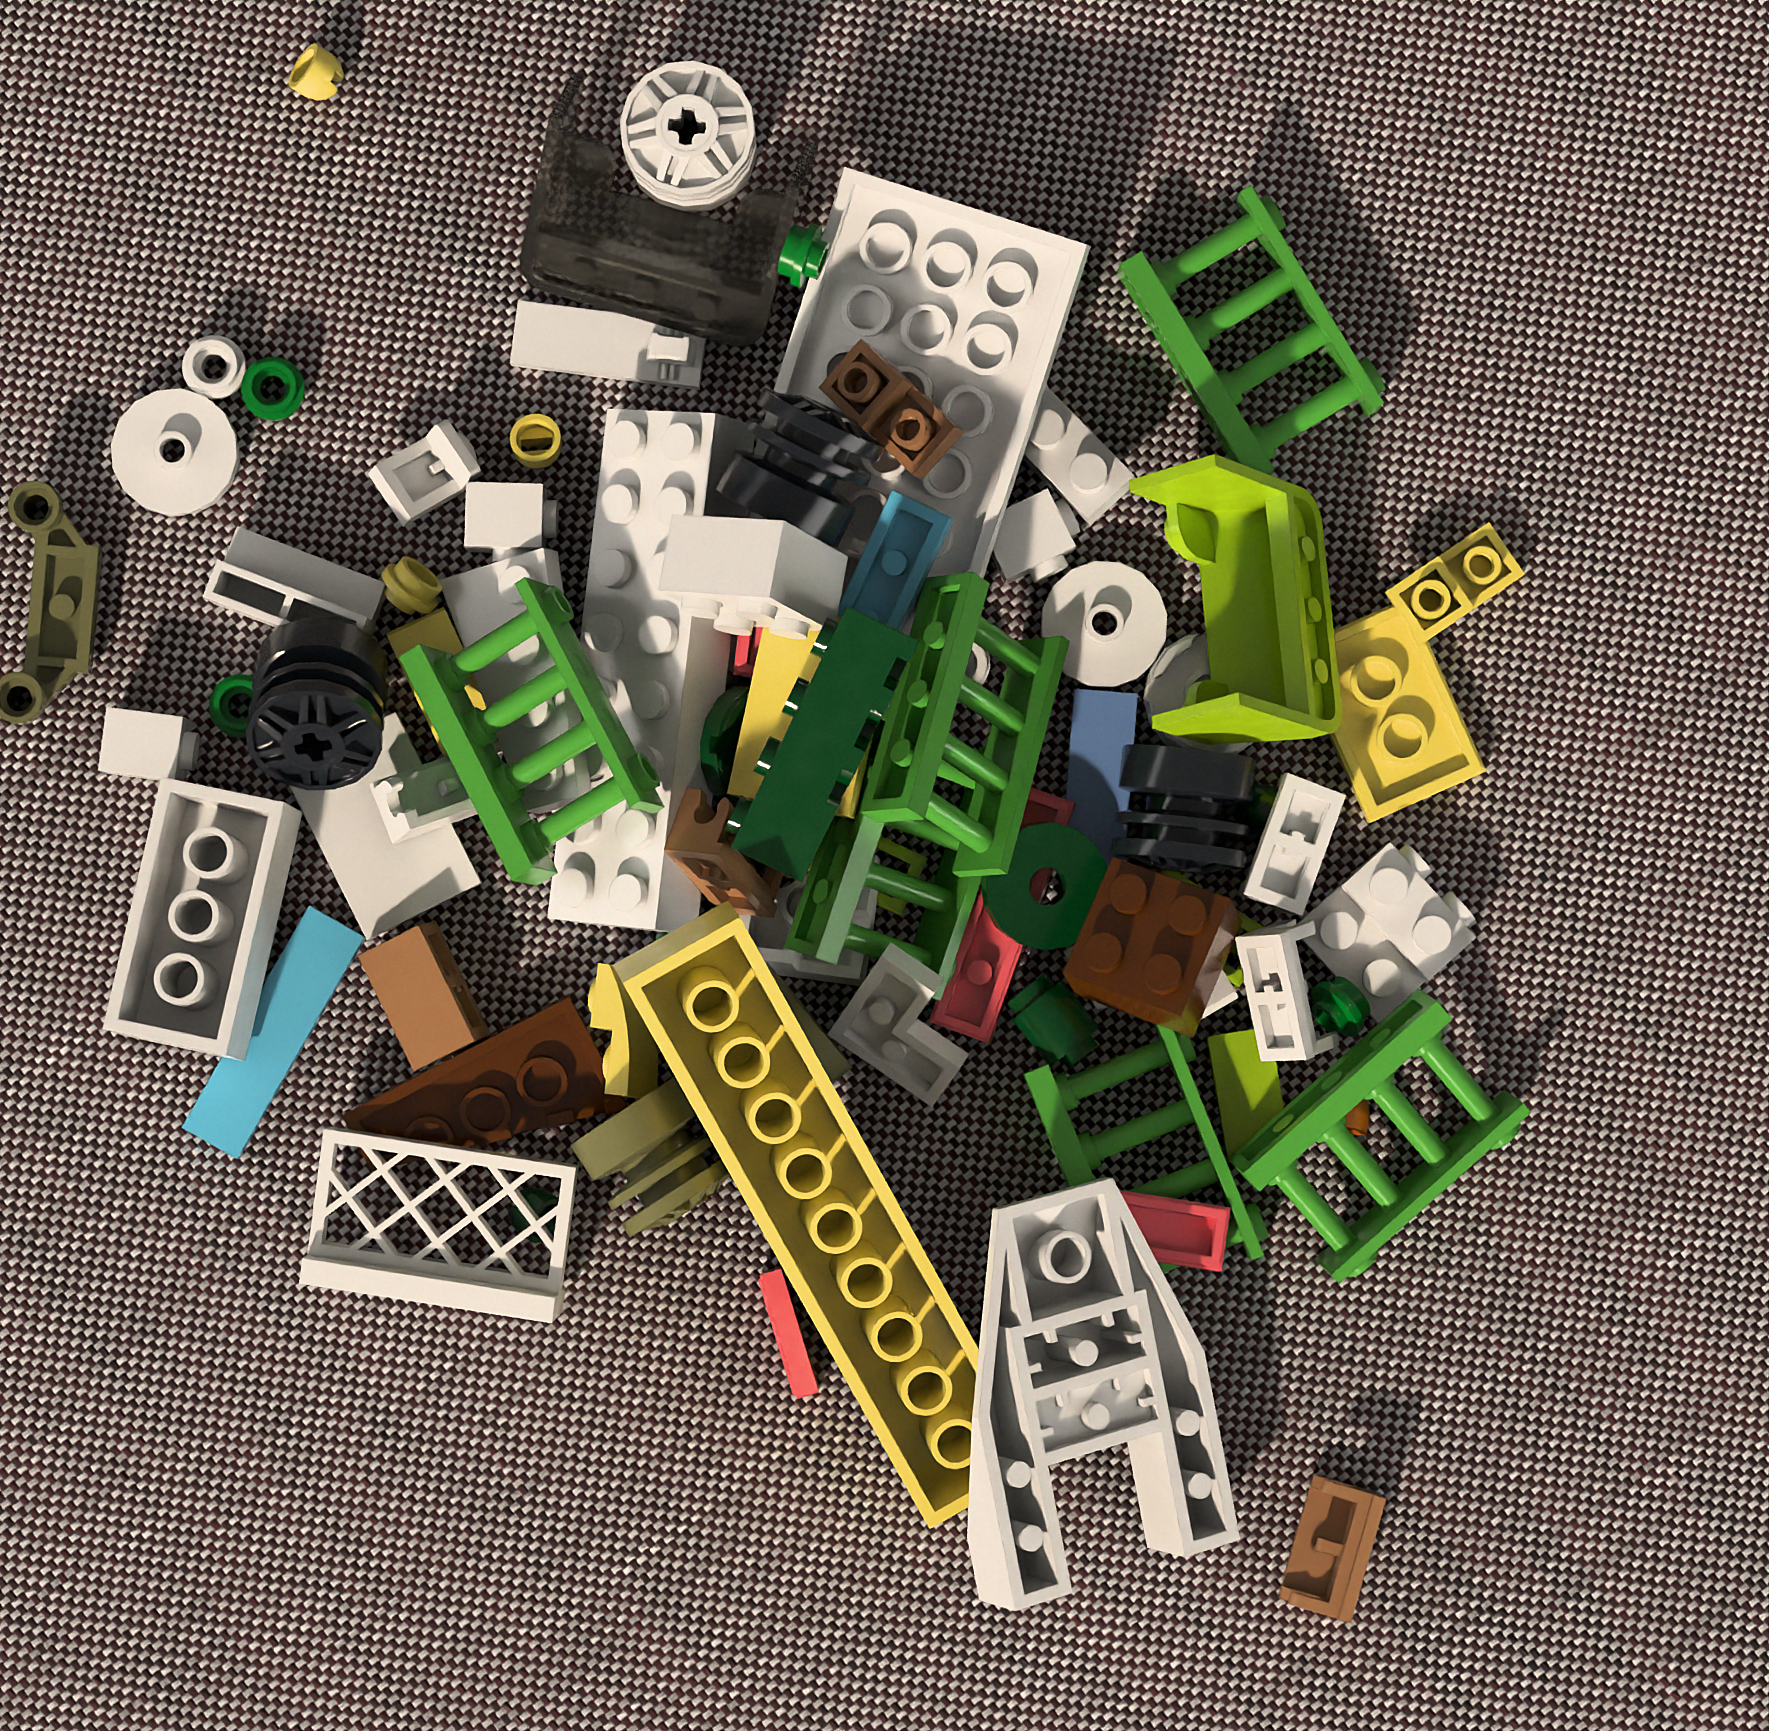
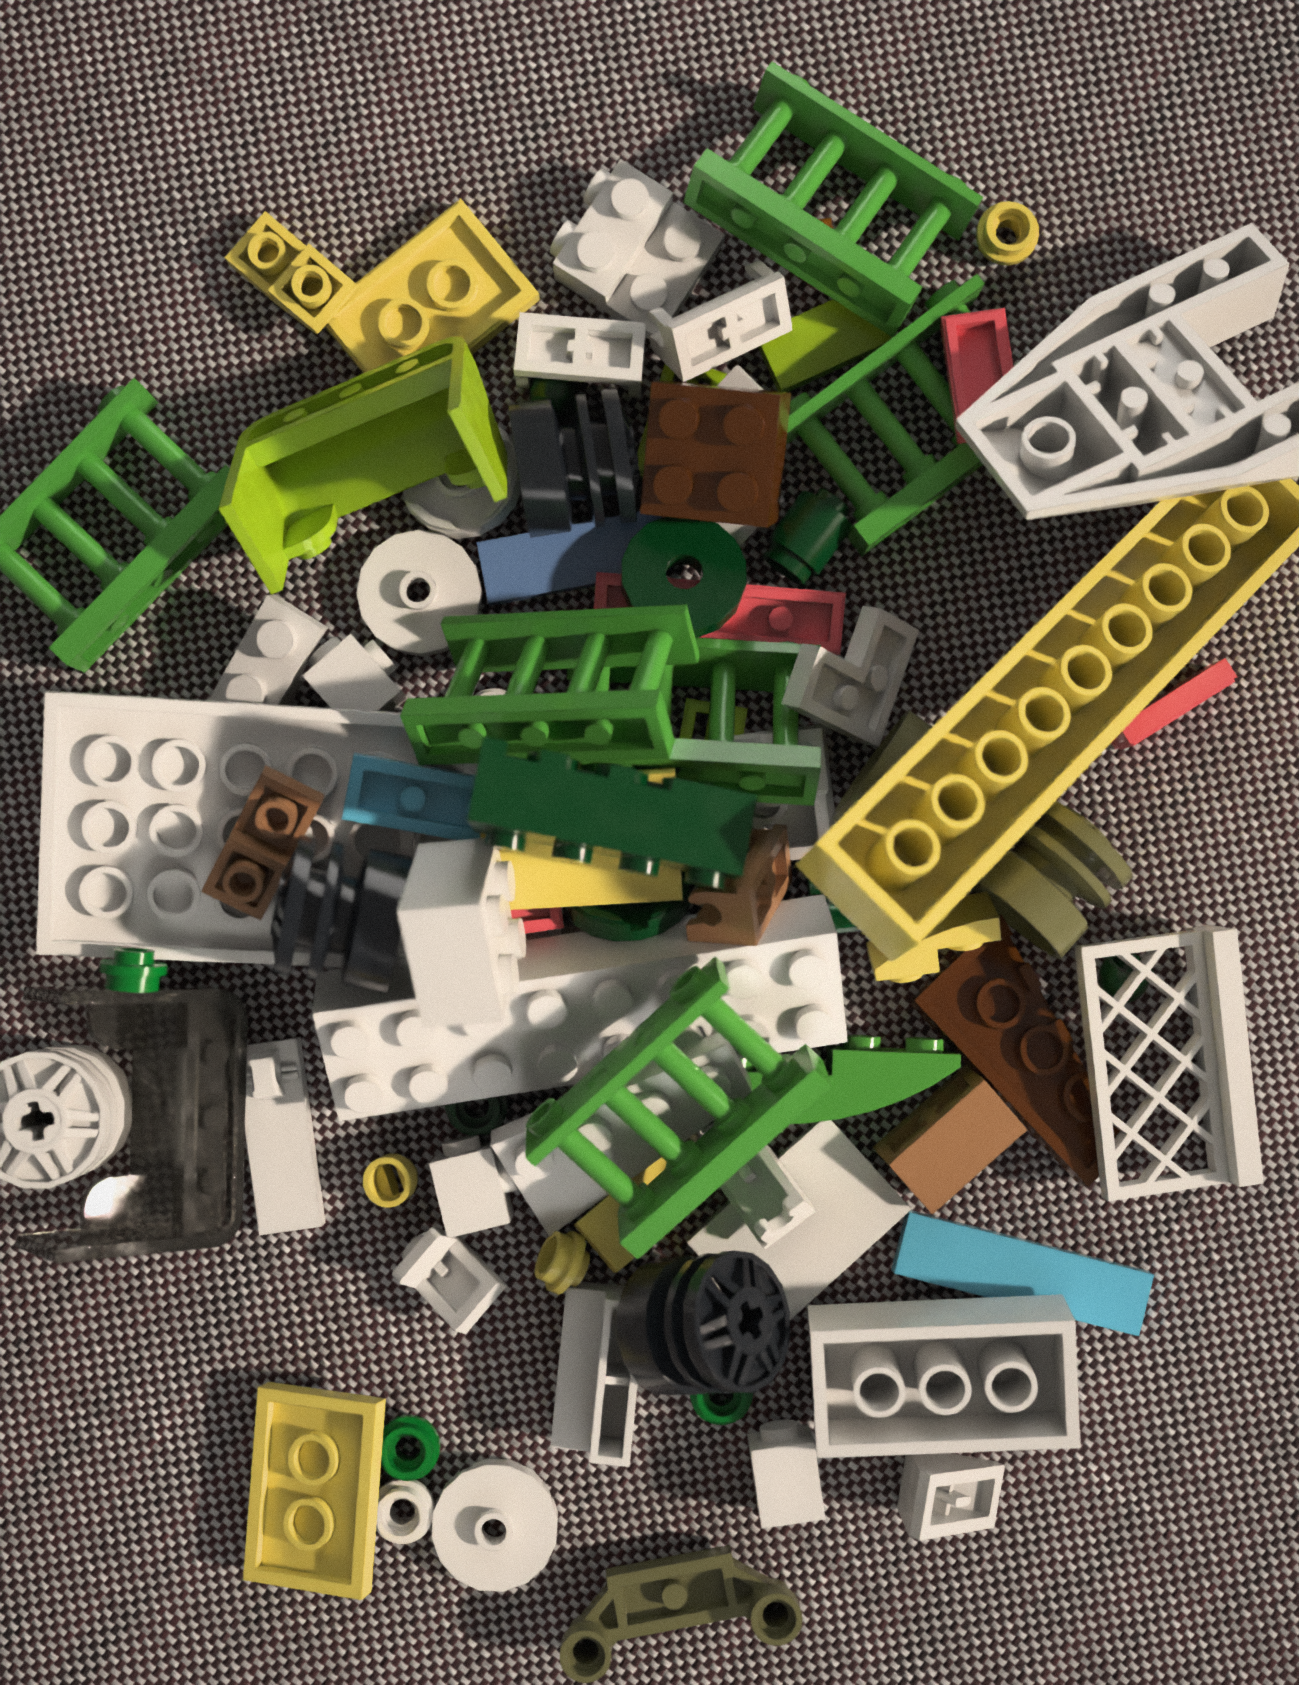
camera: 115 degrees left, 0 degrees up
(82, 901) = (948, 1494): none -> white slope
(260, 289) = (314, 1490): none -> light yellow plate
(314, 72) = (91, 1491): light yellow hinge -> none
(507, 934) = (874, 1076): none -> bright green slope
(567, 541) = (478, 1123): none -> dark green plate
(1325, 1313) = (1012, 216): none -> light yellow plate
(1331, 1547) = (1225, 145): medium nougat hinge -> none
(1339, 1006) = (719, 270): green plate -> none

